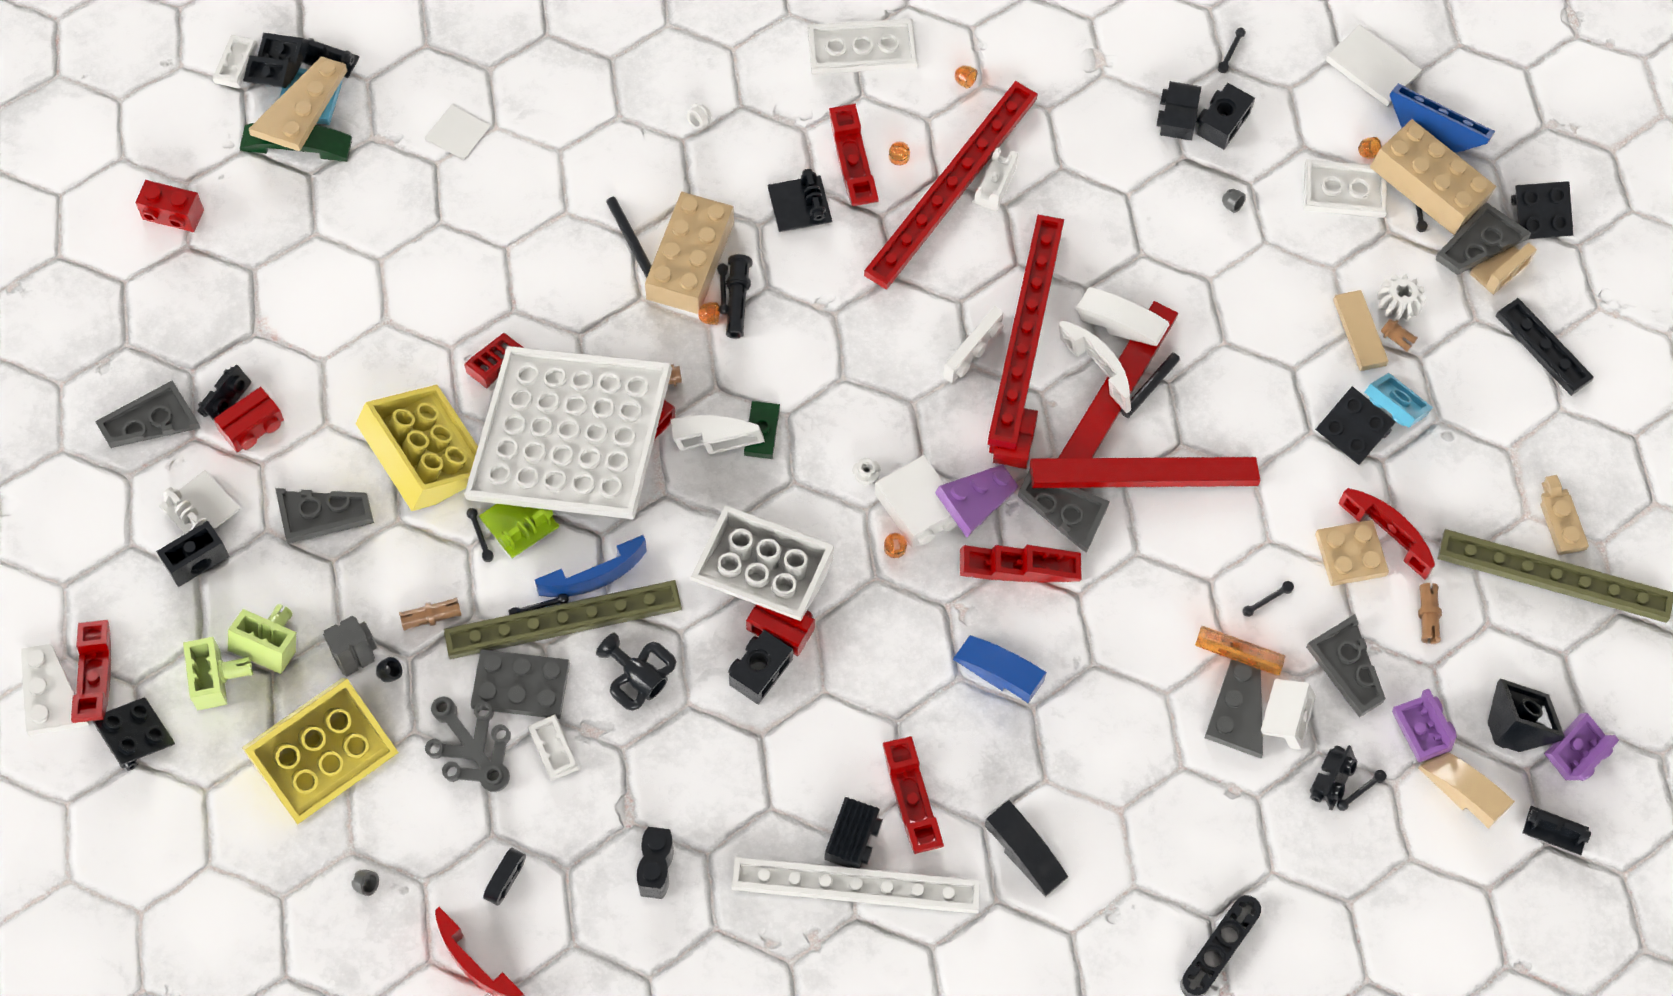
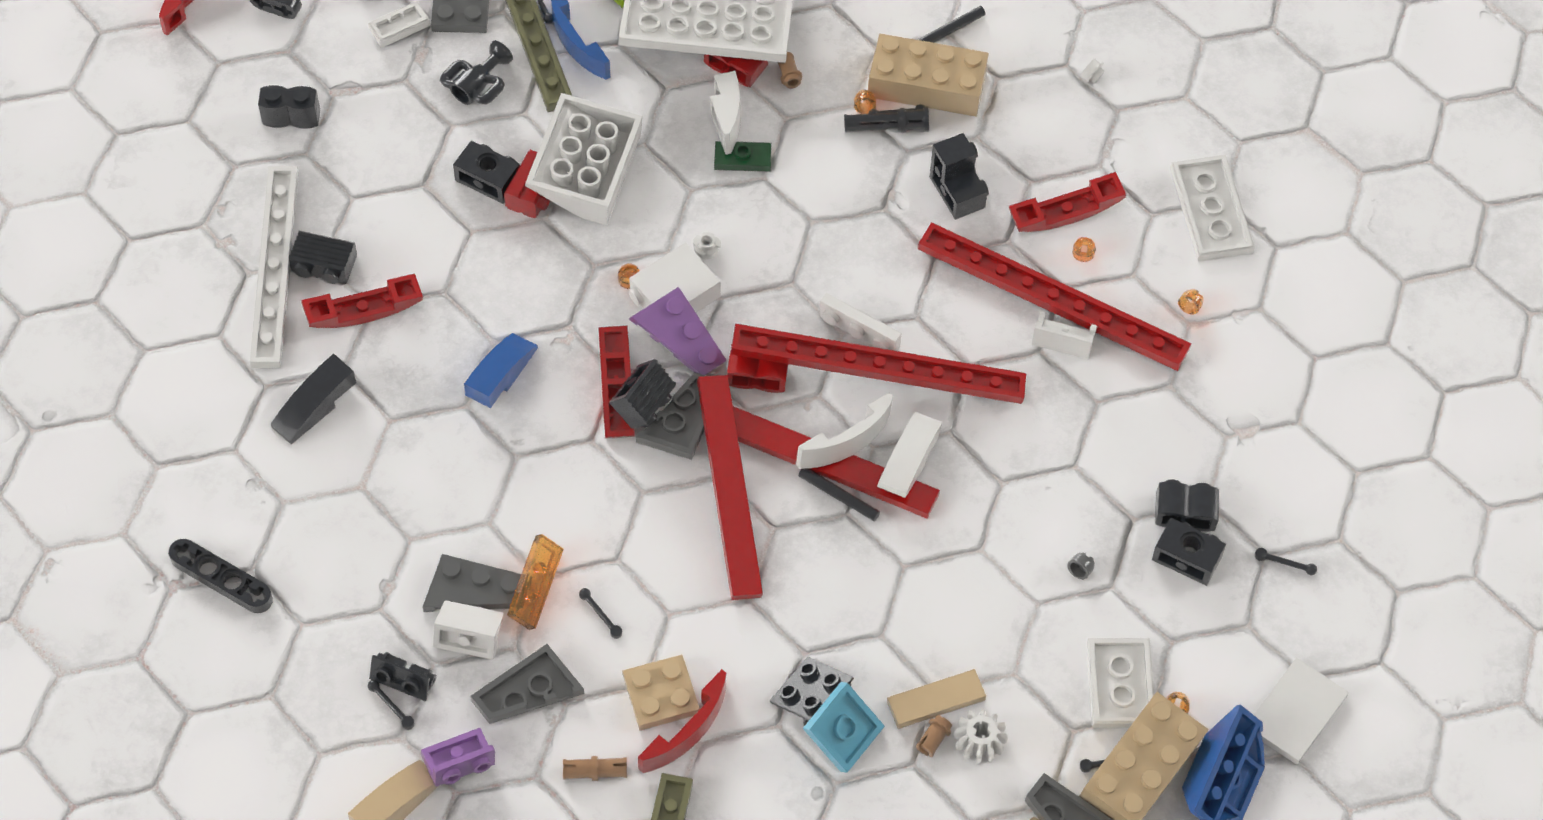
camera: 85 degrees right, 5 degrees down
(800, 202) = (1008, 166): black hinge -> none
(817, 240) = (956, 177): none -> black brick
(1049, 533) = (643, 394): none -> black brick

